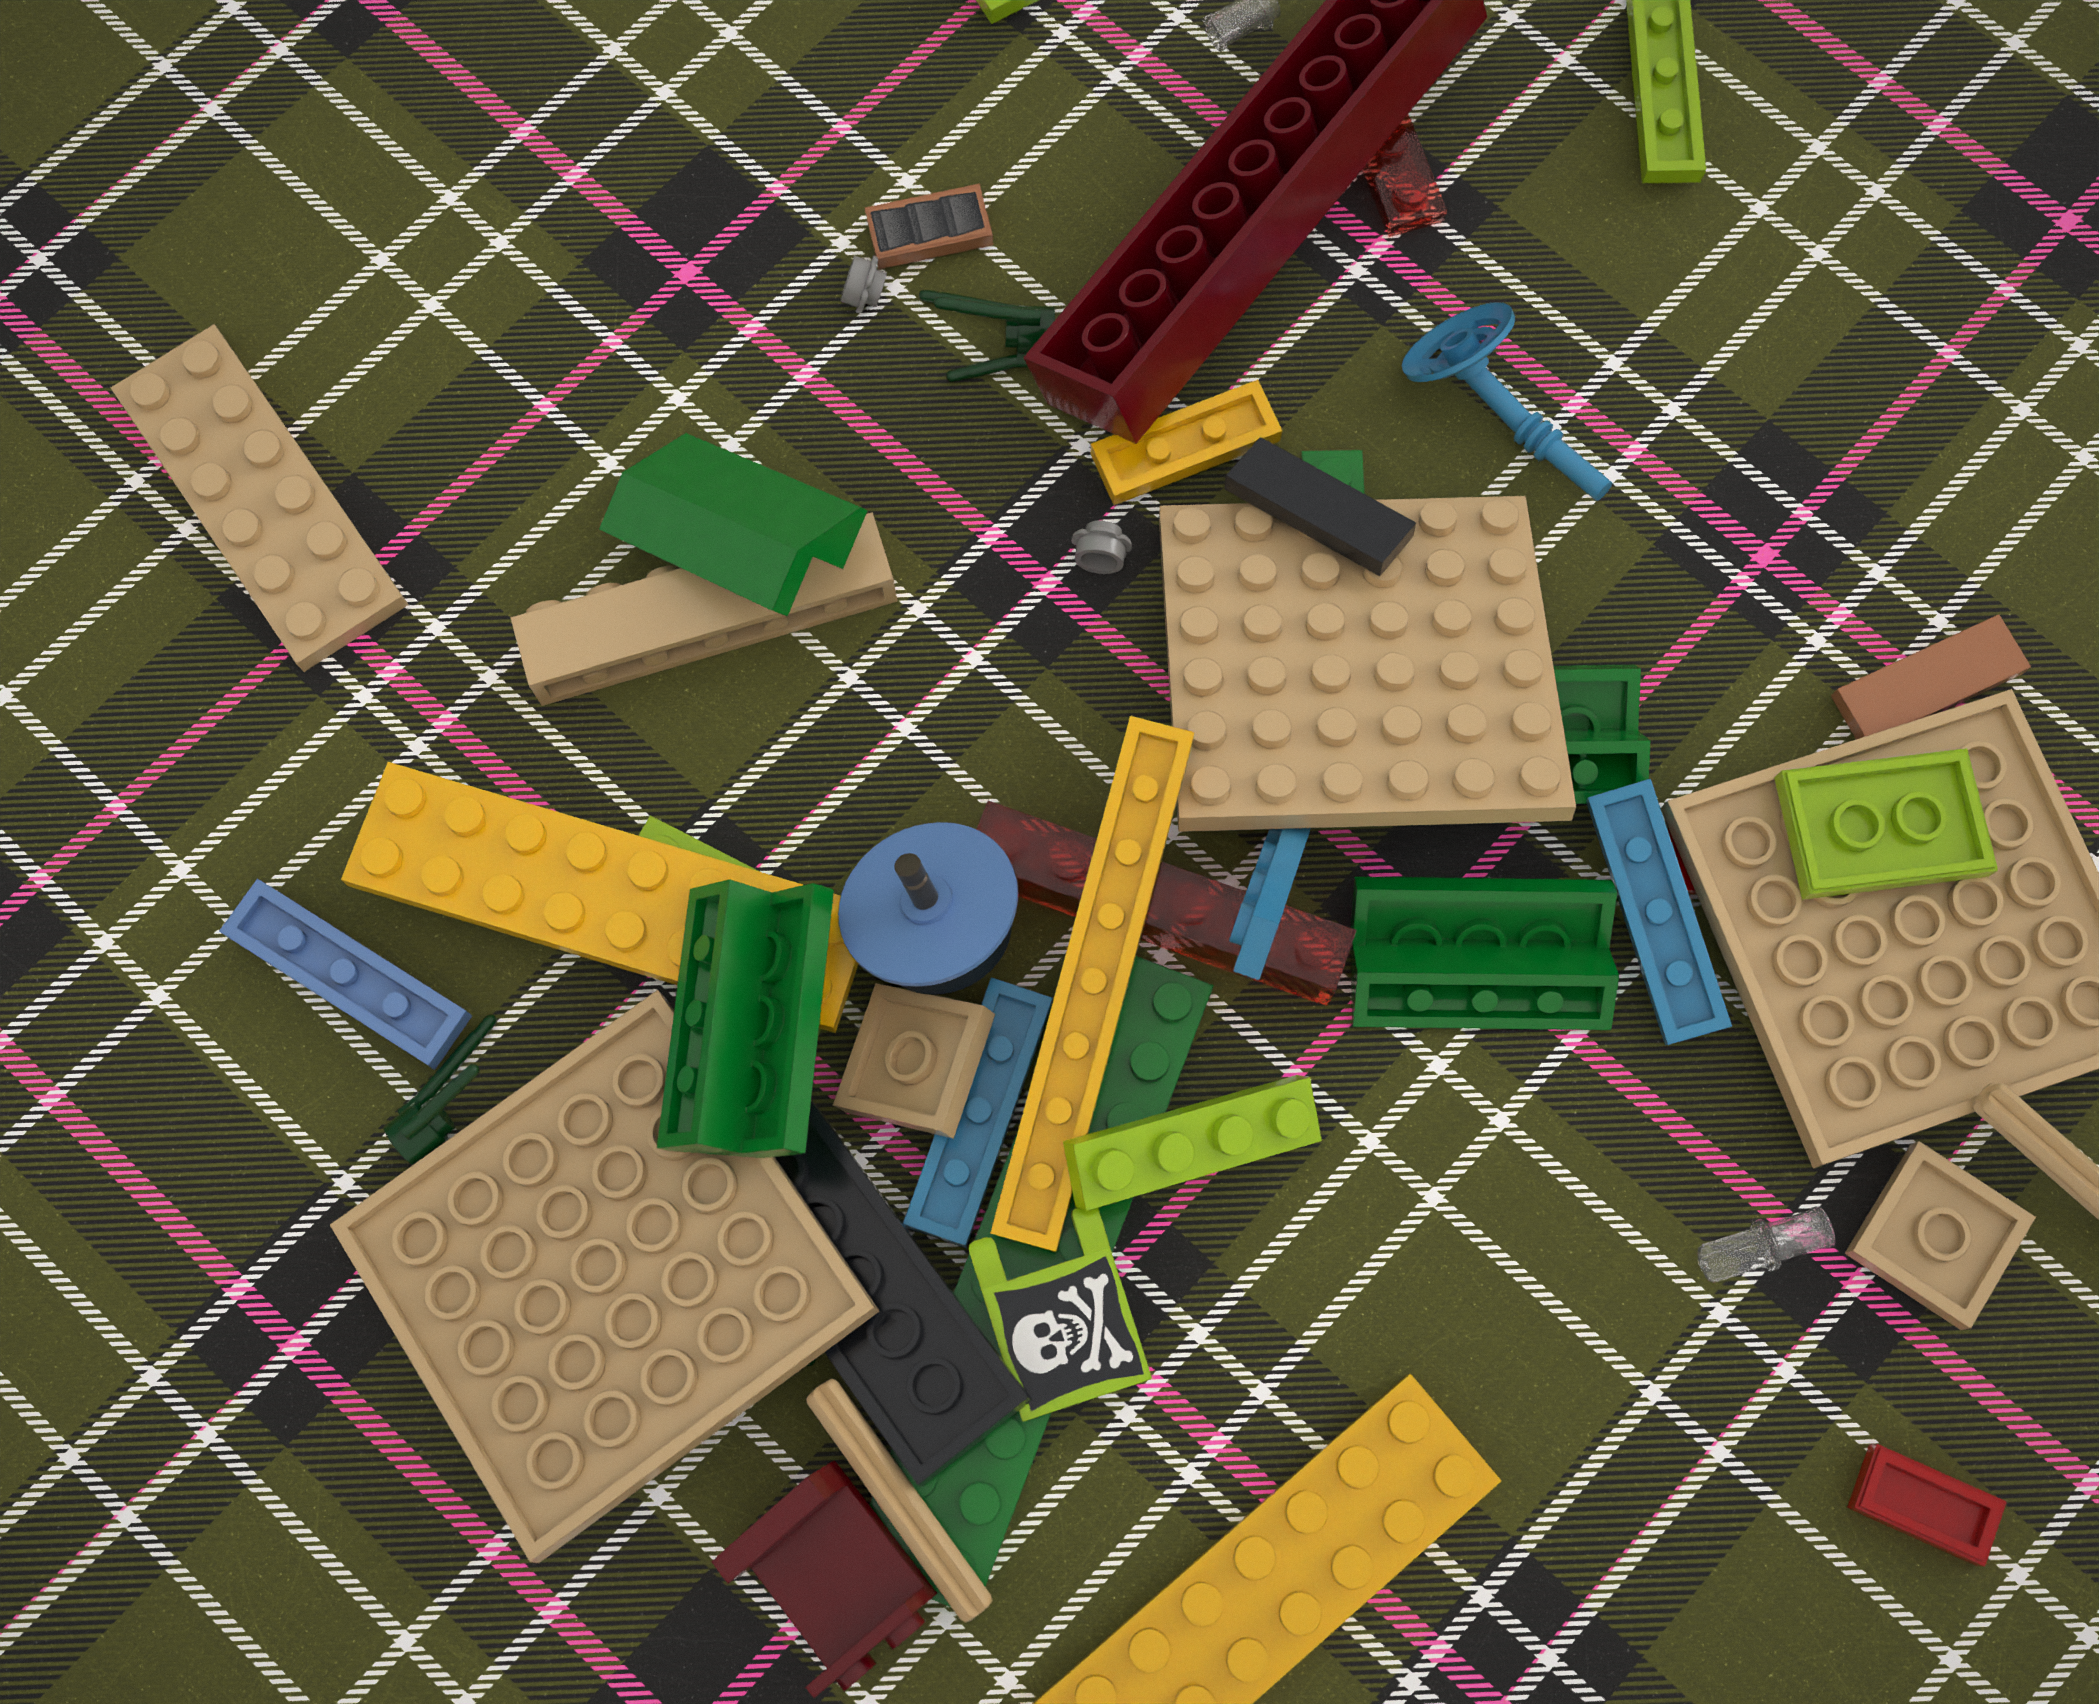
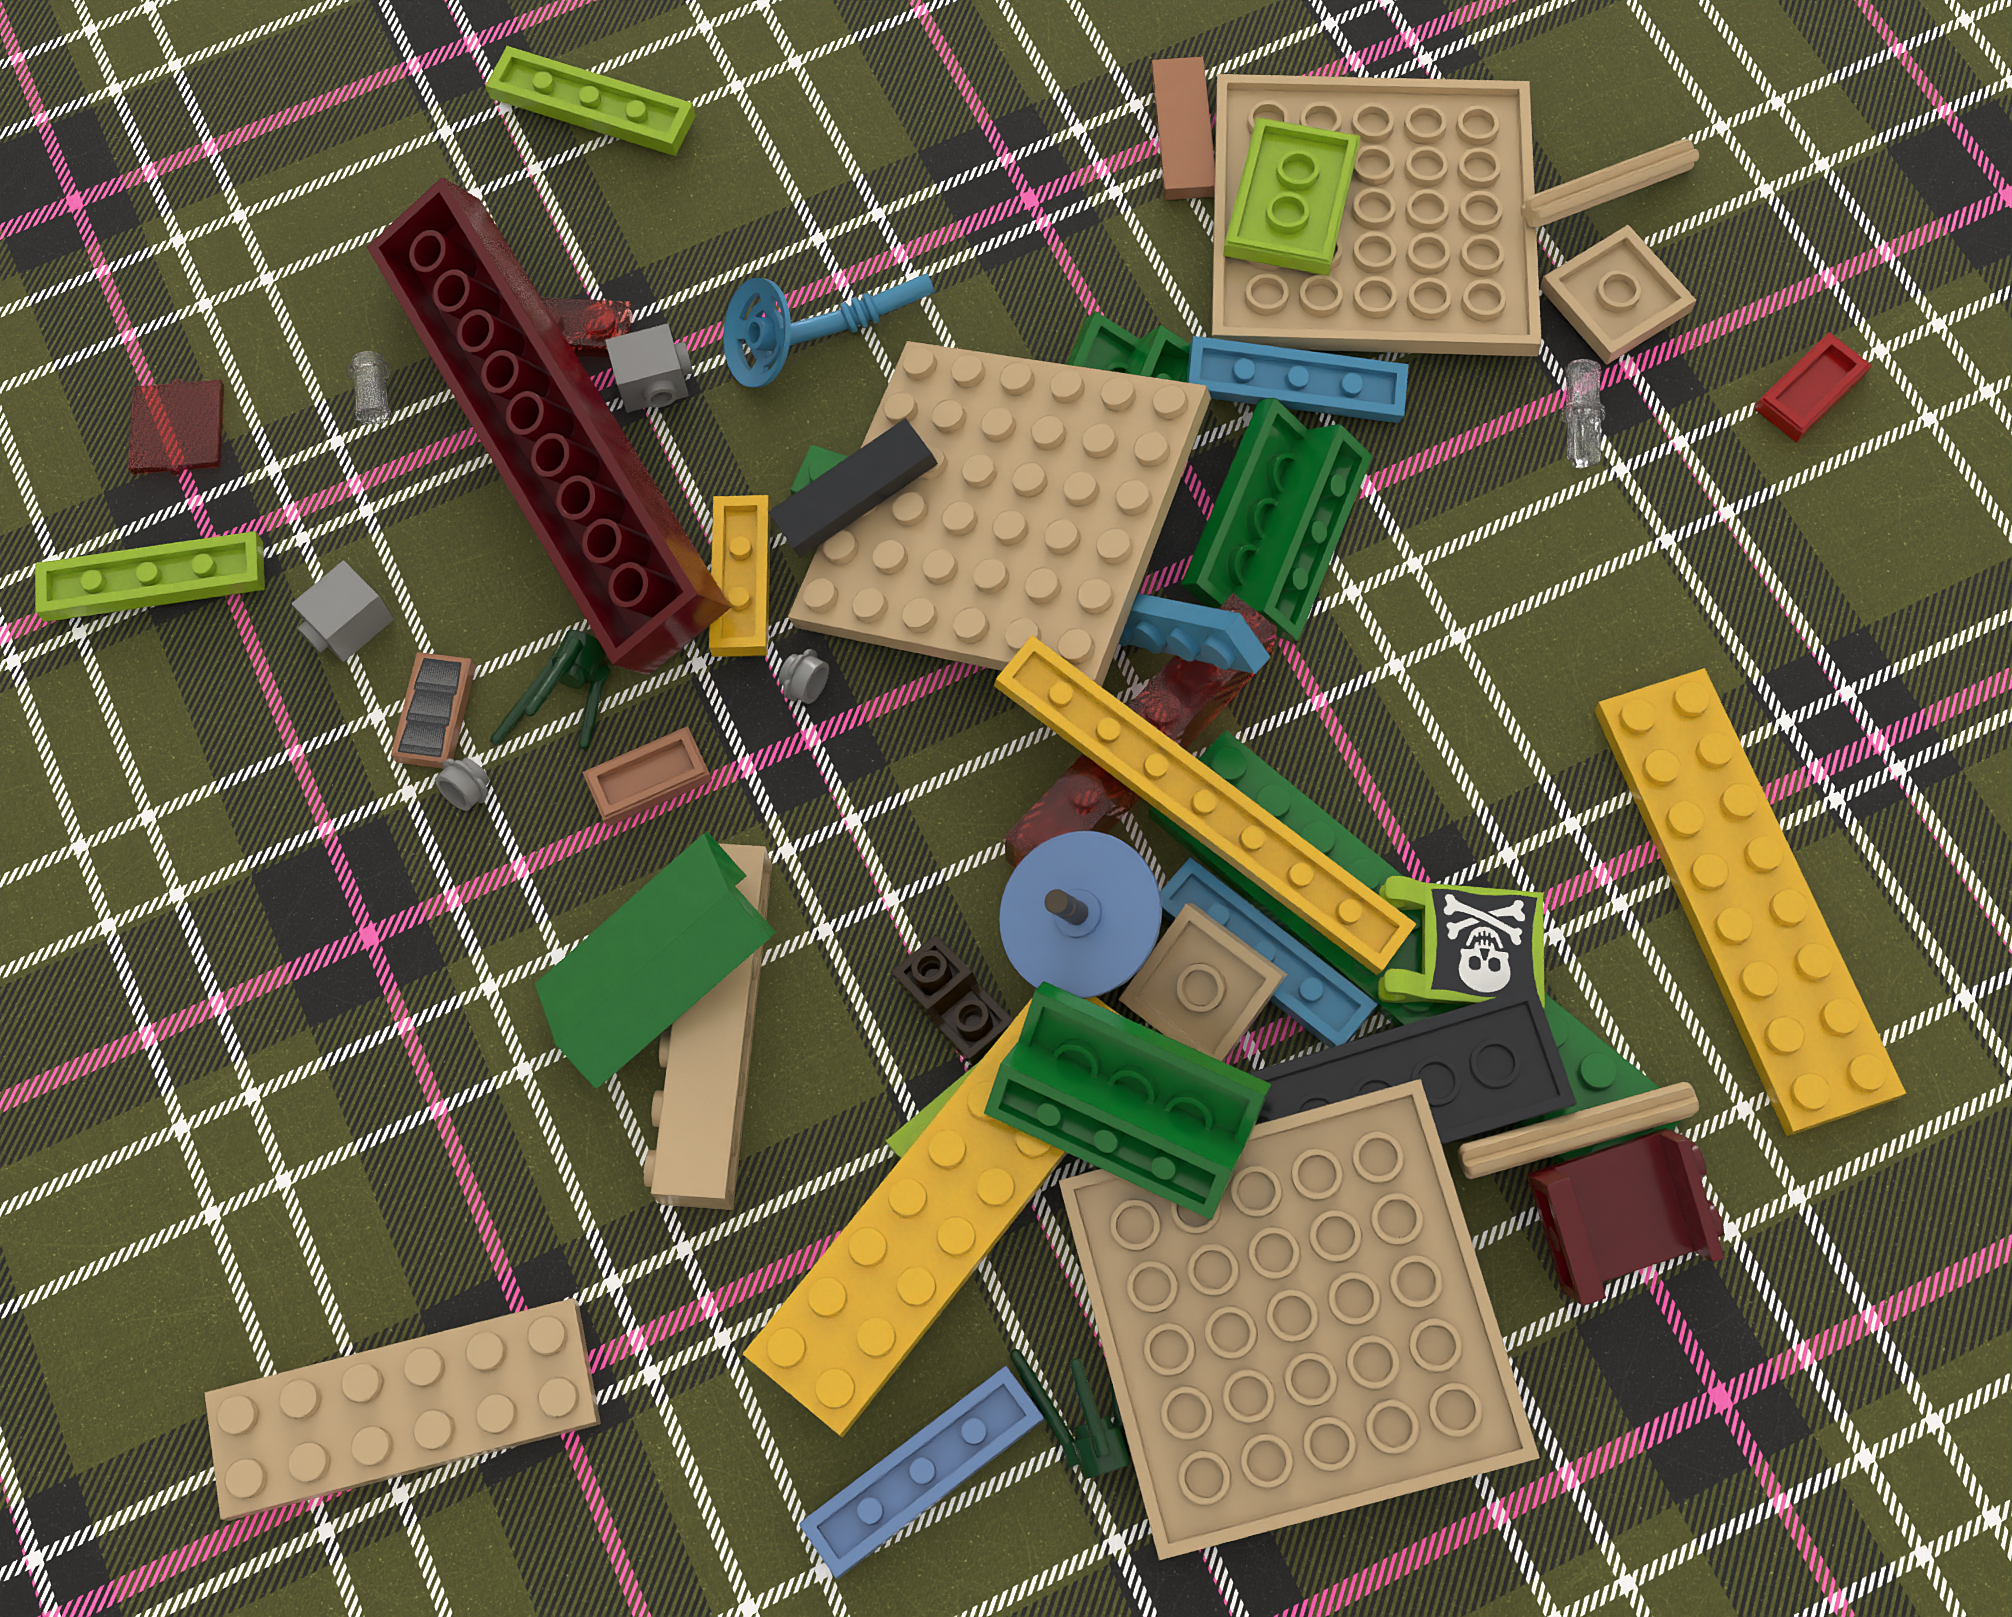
camera: 65 degrees left, 5 degrees down
(820, 823) = (952, 999): none -> dark brown slope
(940, 447) = (647, 776): none -> nougat tile
(990, 98) = (341, 612): none -> light grey brick
(1191, 1142) = (1359, 788): lime plate -> none
(1376, 259) = (649, 367): none -> light grey brick

